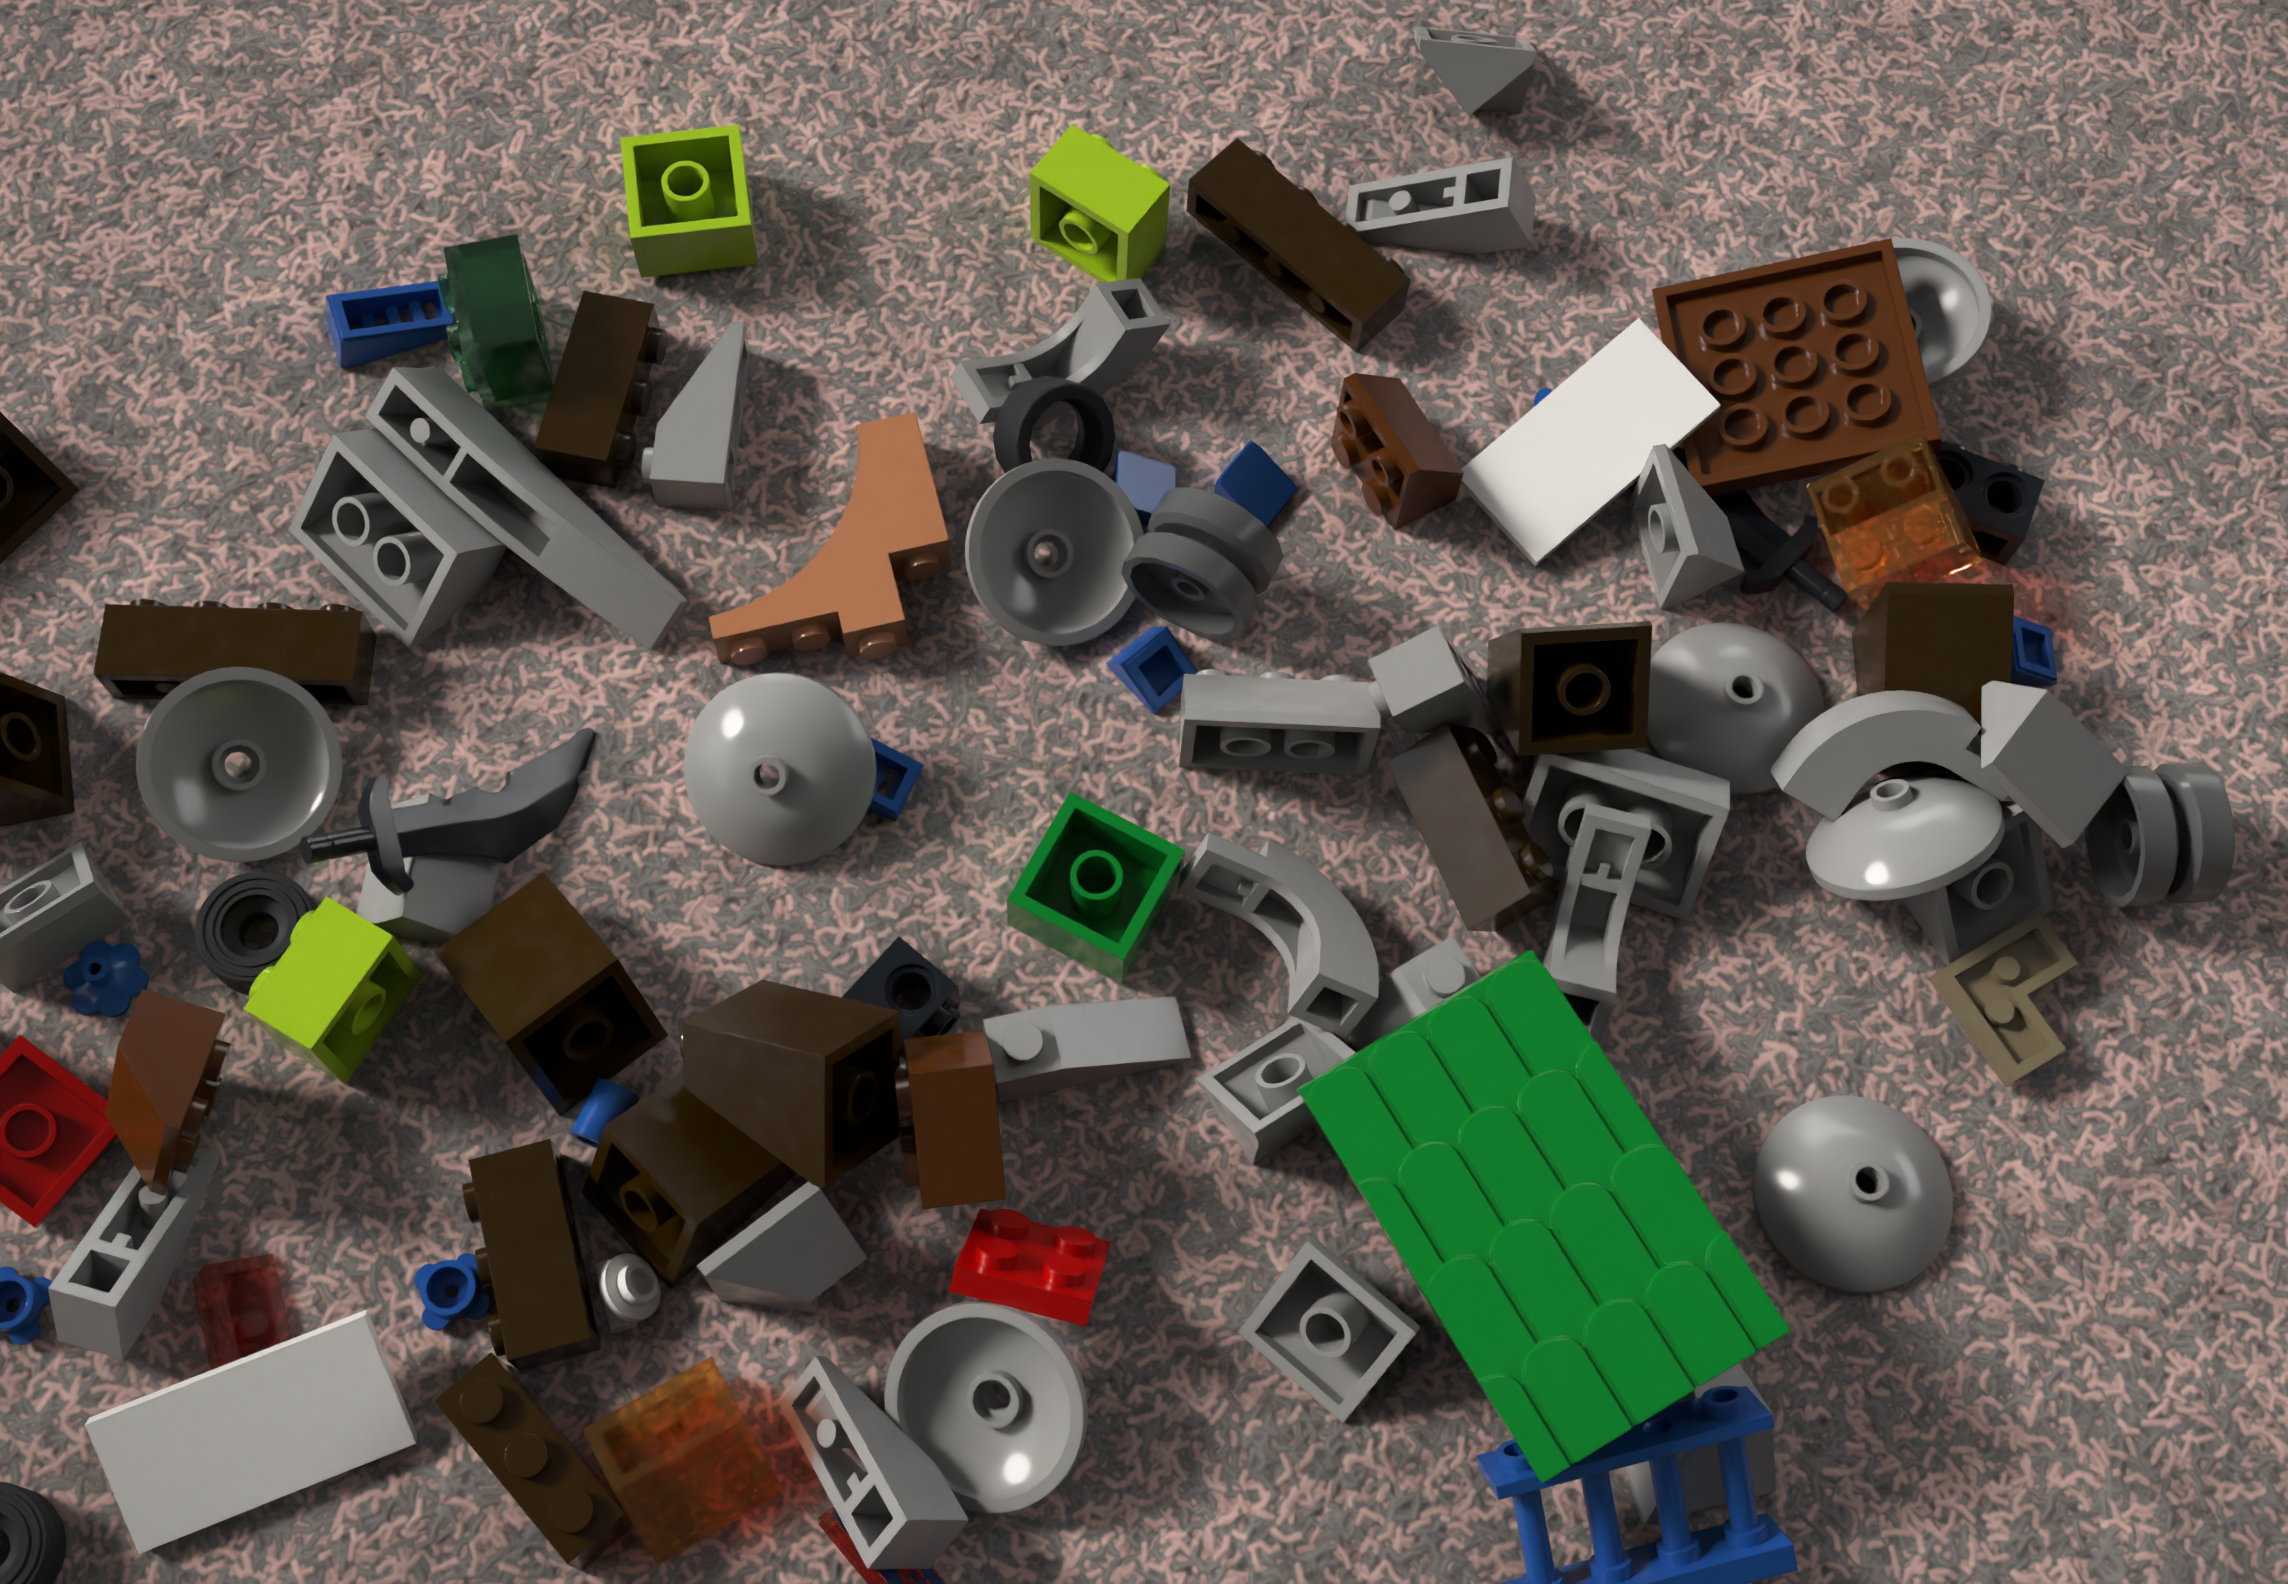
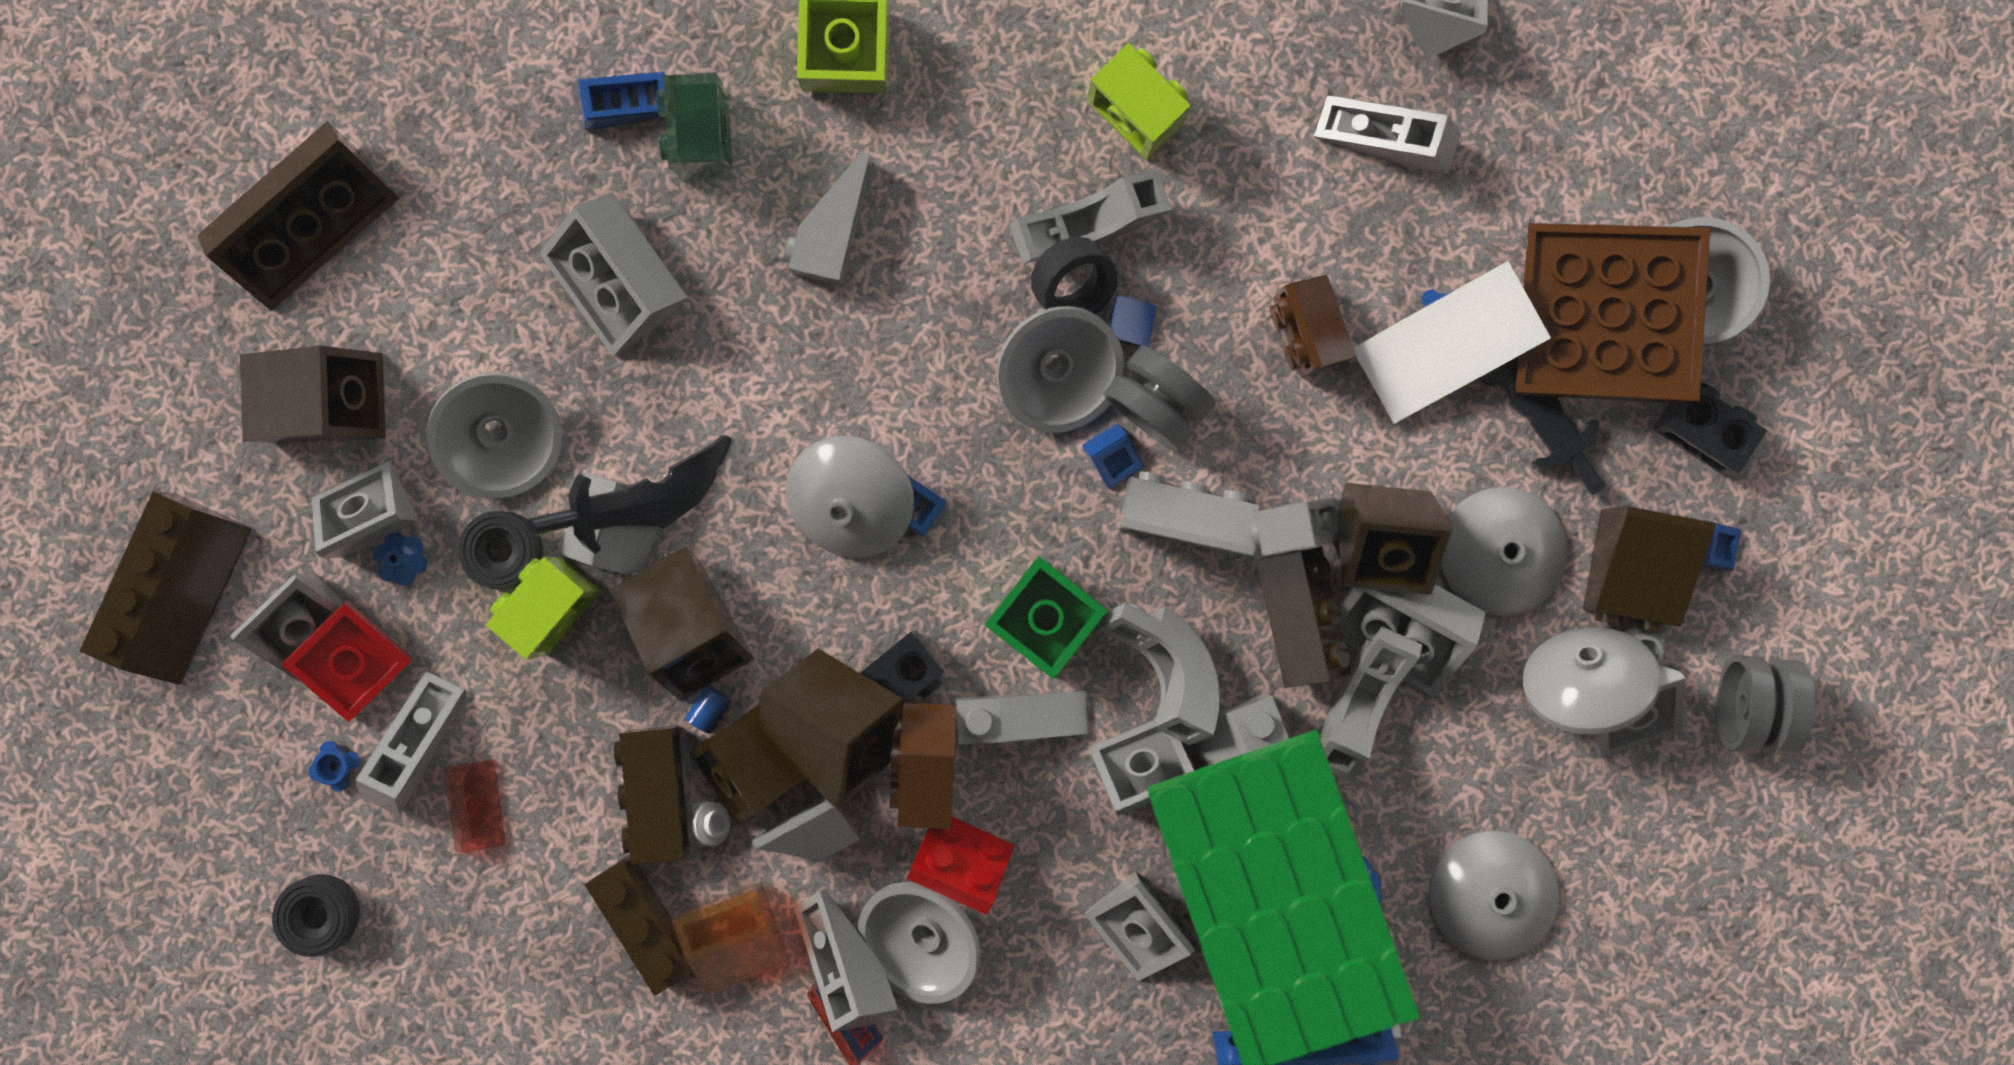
camera: 10 degrees right, 20 degrees up
(156, 647) = (489, 345): dark brown brick -> none
(165, 1084) = (431, 653): reddish brown slope -> none
(251, 1431) = (474, 874): white tile -> none
(434, 1282) = (593, 813): blue plate -> none
(522, 501) = (697, 263): light grey slope -> none
(601, 389) = (764, 183): dark brown brick -> none
(850, 585) = (917, 366): nougat arch -> none
(1256, 484) = (1209, 333): blue slope -> none
(1297, 244) = (1278, 143): dark brown brick -> none
(1680, 531) = (1499, 426): light grey slope -> none
(1870, 733) = (1595, 609): light grey arch -> none
(1893, 520) = (1649, 446): clear orange slope -> none
(1992, 991) = (1621, 785): dark tan plate -> none
(2045, 759) = (1697, 653): light grey slope -> none

